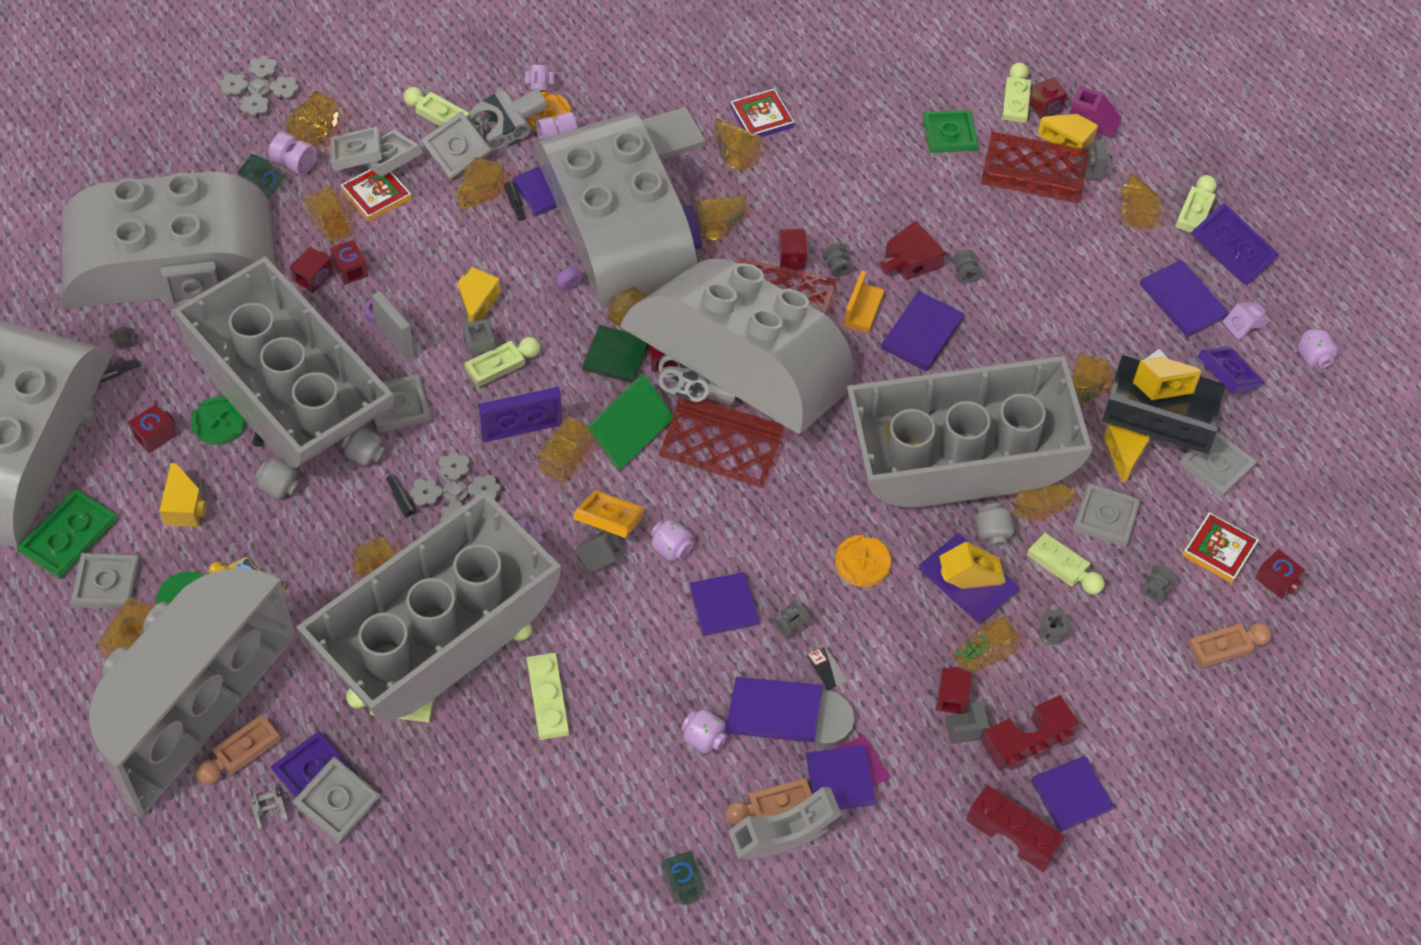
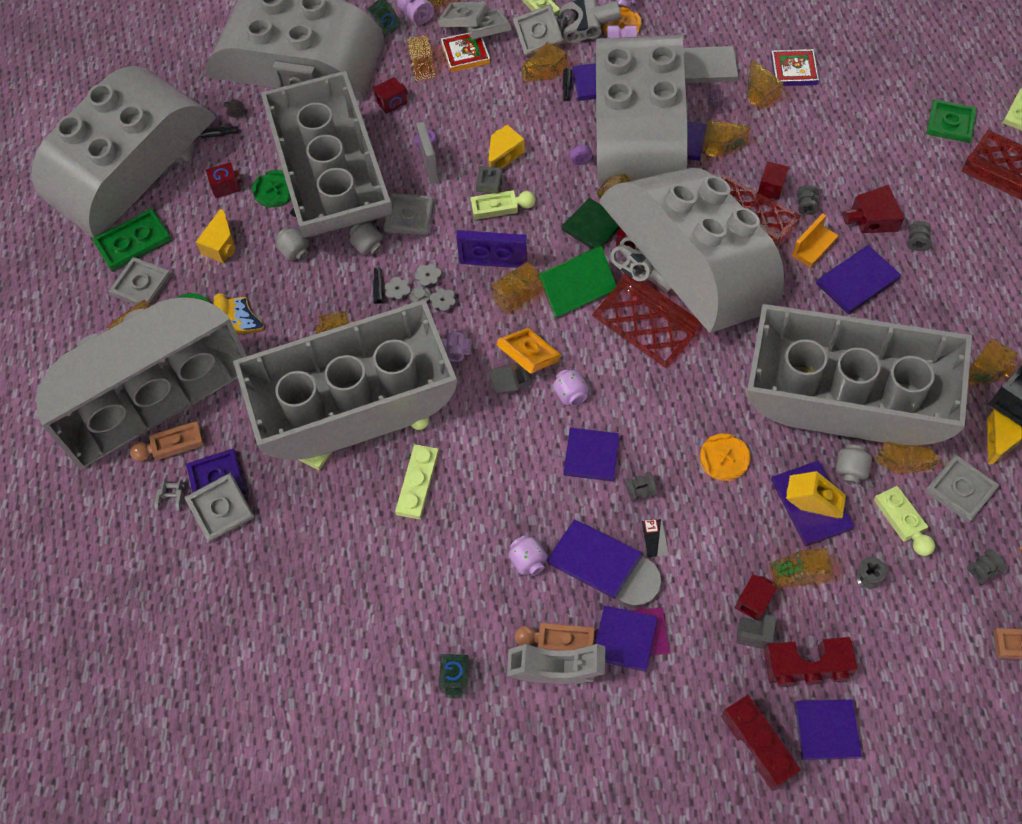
camera: 30 degrees right, 5 degrees up
(349, 262) = (419, 97): dark red brick -> none

